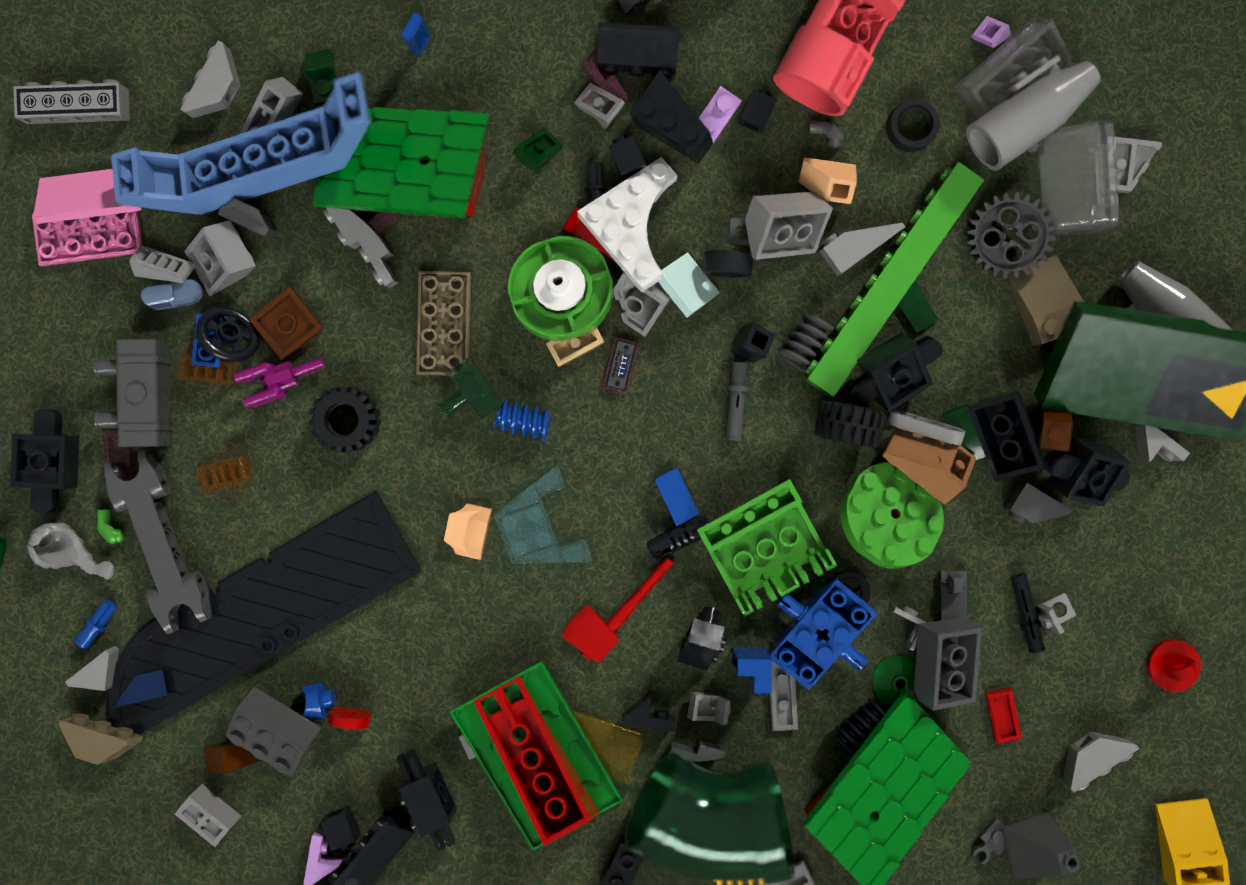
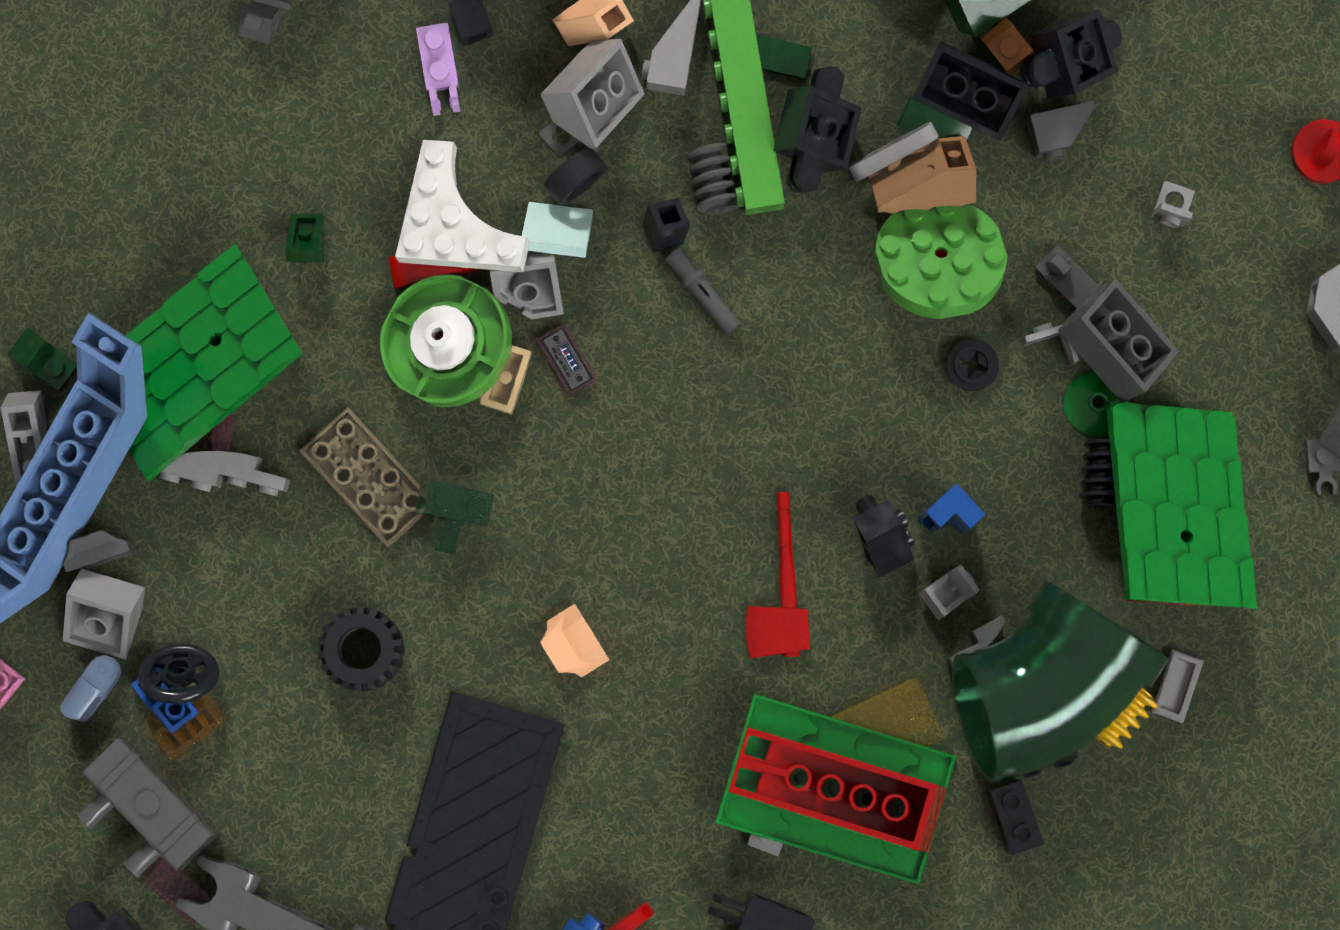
camera: 50 degrees left, 5 degrees down
(159, 265) = (55, 672): light grey slope -> none
(243, 467) = (309, 787): clear orange slope -> none
(275, 379) = (261, 674): magenta plant -> none
(286, 323) = (222, 614): reddish brown plate -> none
(416, 34) = (98, 239): blue tile -> none
(523, 420) = (525, 492): blue piece -> none
(528, 529) = (627, 590): clear light blue wing -> none
(594, 181) = (383, 218): black axle -> none
(599, 104) = (323, 145): light grey slope -> none
(610, 84) = (318, 122): clear pink slope -> none
(626, 156) = (391, 168): black brick -> none
(637, 49) = (312, 65): black slope -> none
(640, 716) = (894, 659): black slope -> none
(671, 120) = (402, 98): black wedge -> none
(676, 496) = (732, 430): blue slope -> none
(676, 538) = (770, 463): black hinge -> none
(765, 546) = (855, 395): bright green slope -> none
(783, 700) = (1004, 514): light grey tile -> none
(810, 654) = (987, 455): blue slope -> none
(849, 424) = (822, 213): black tyre -> none
(1003, 715) = (1220, 342): red tile -> none
(1035, 643) = (1182, 250): black pin -> none

